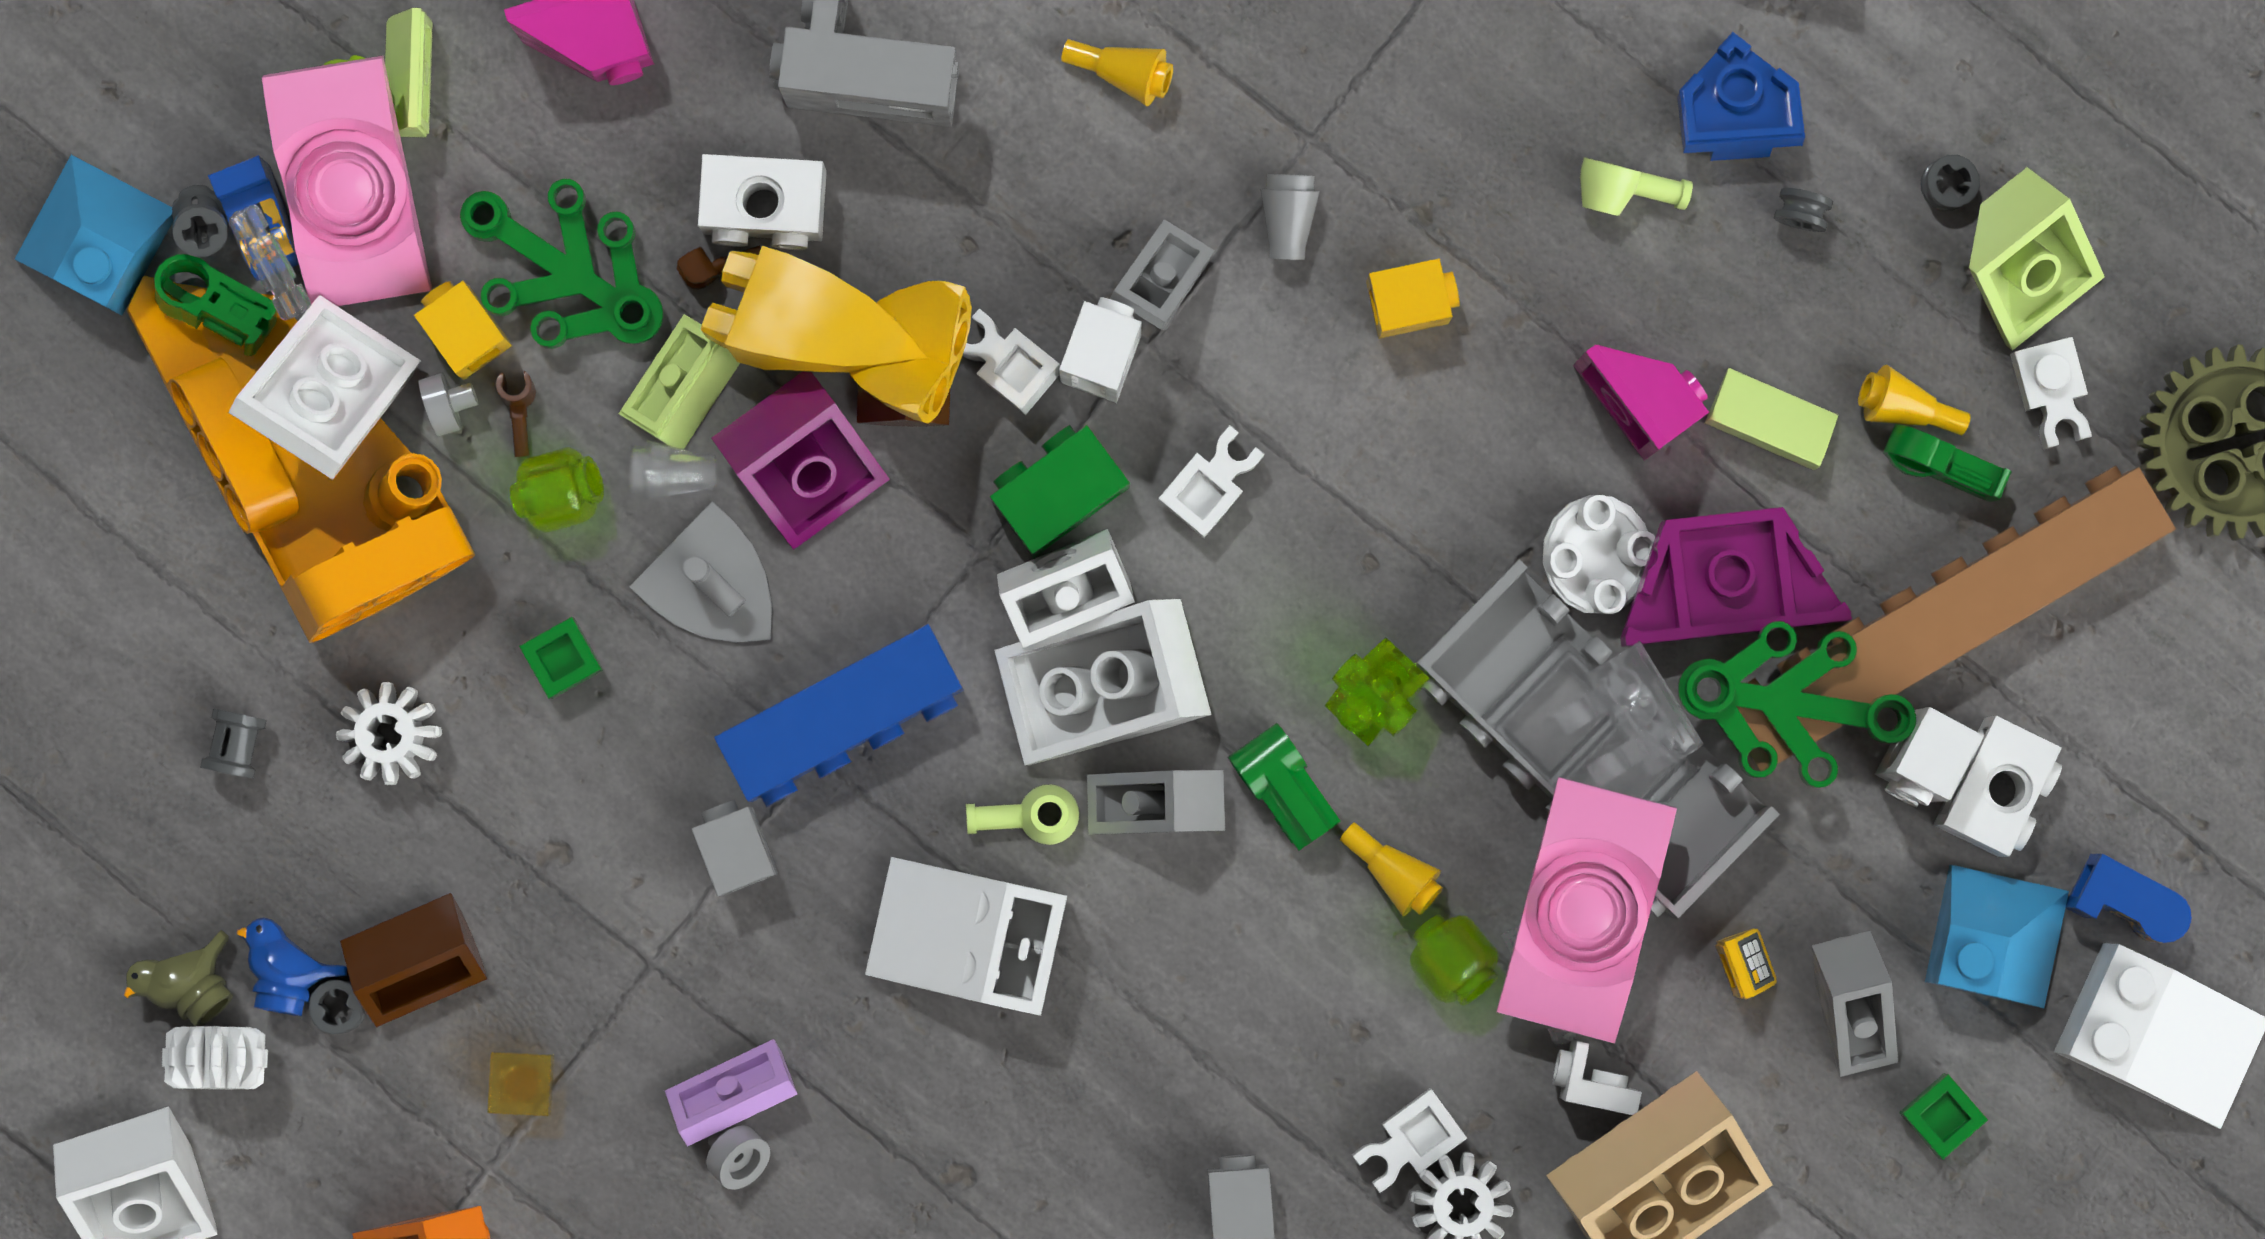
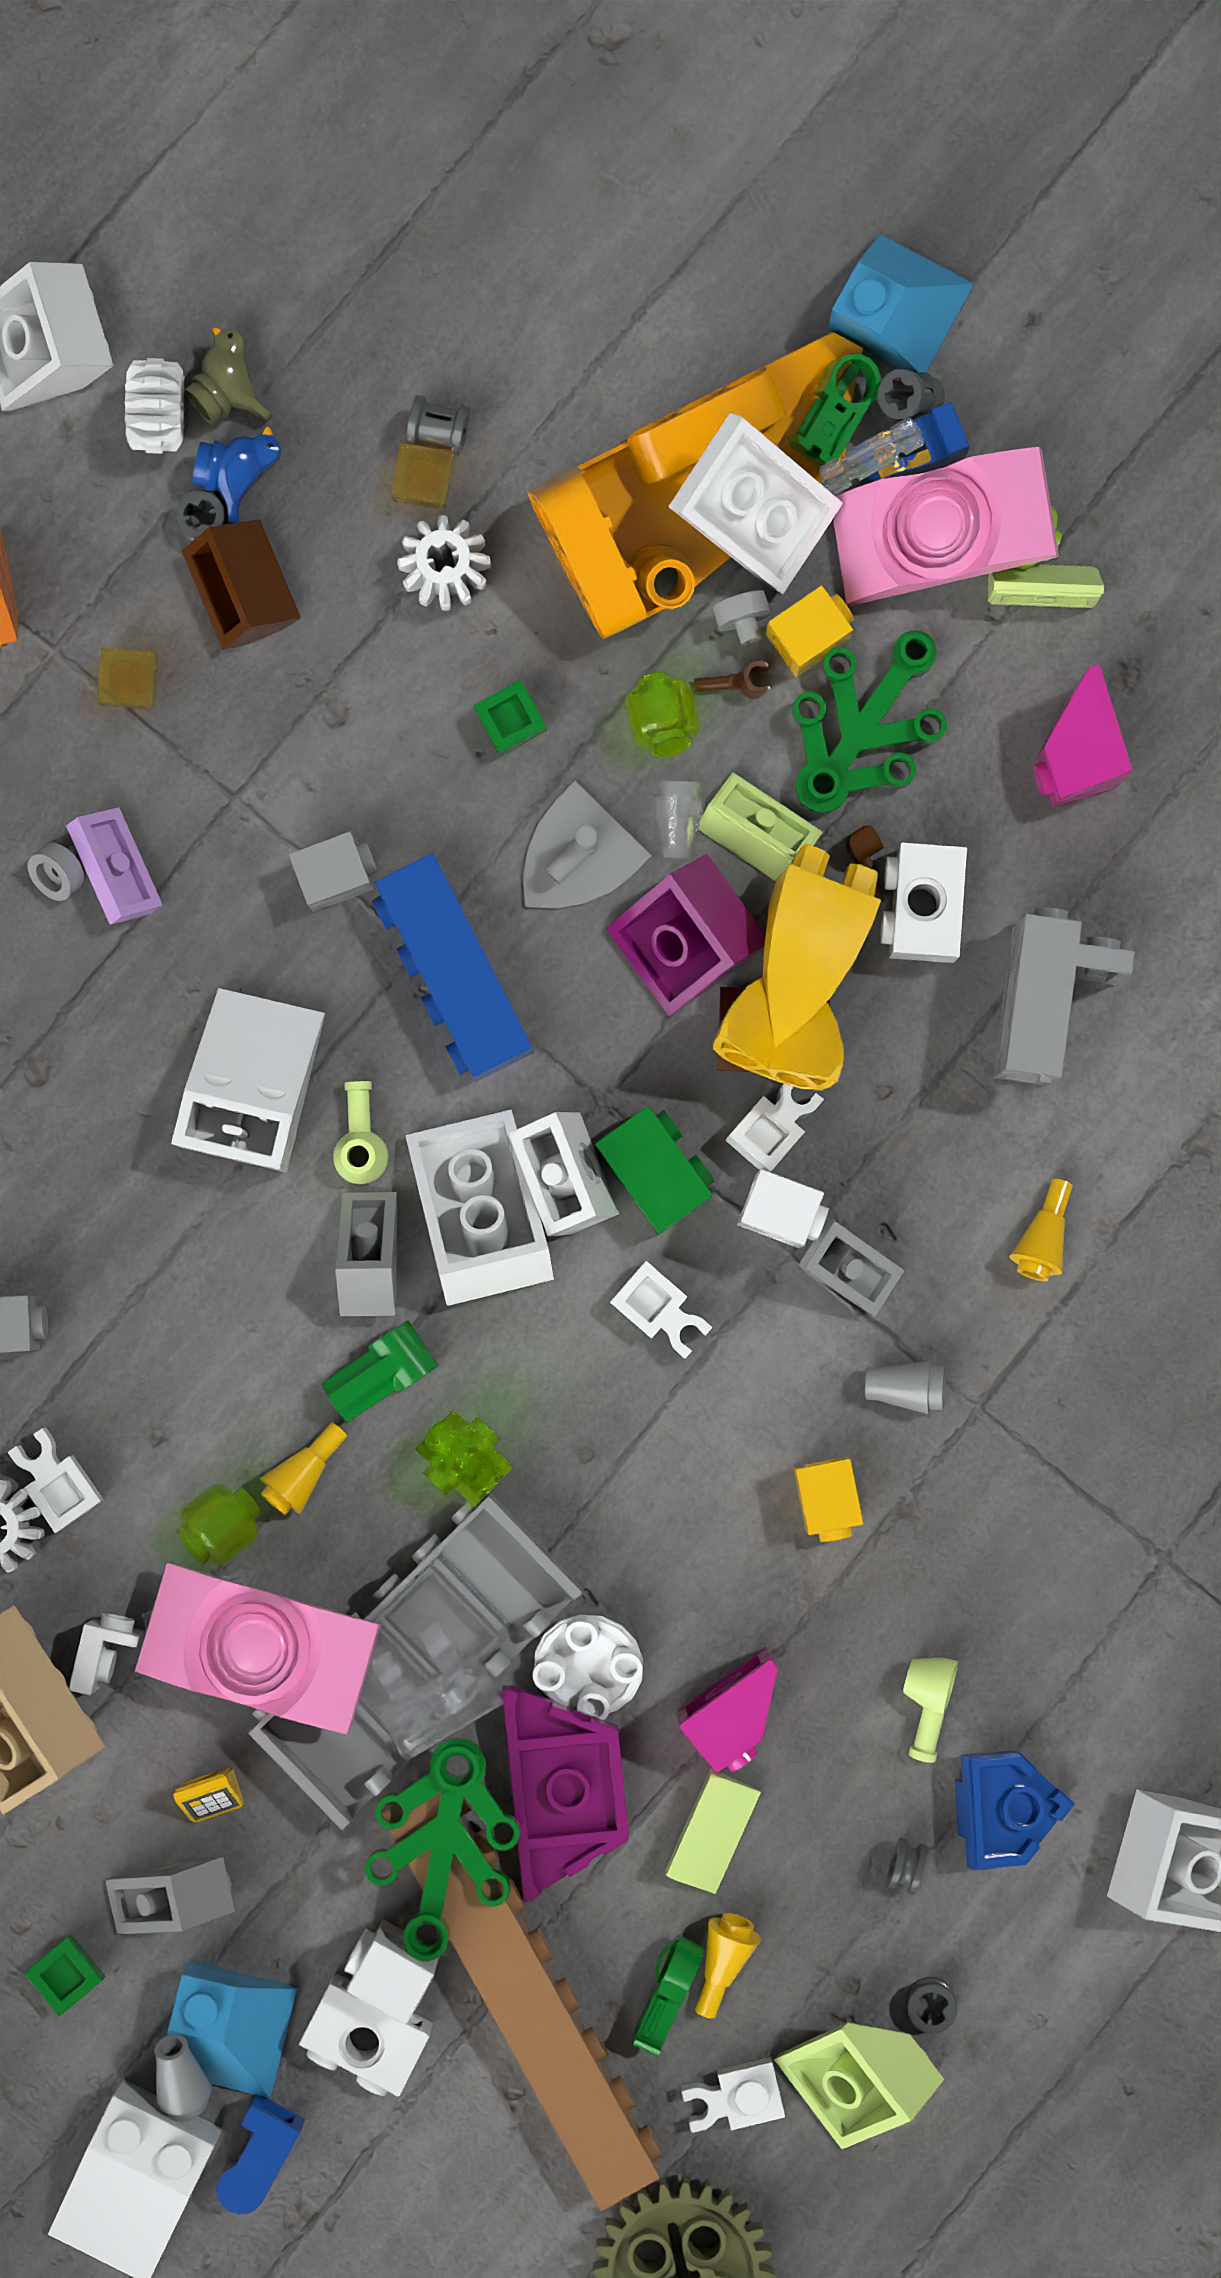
camera: 100 degrees right, 0 degrees up
(291, 759) = (423, 476): none -> clear yellow plate
(2053, 983) = (180, 2081): none -> light grey cone

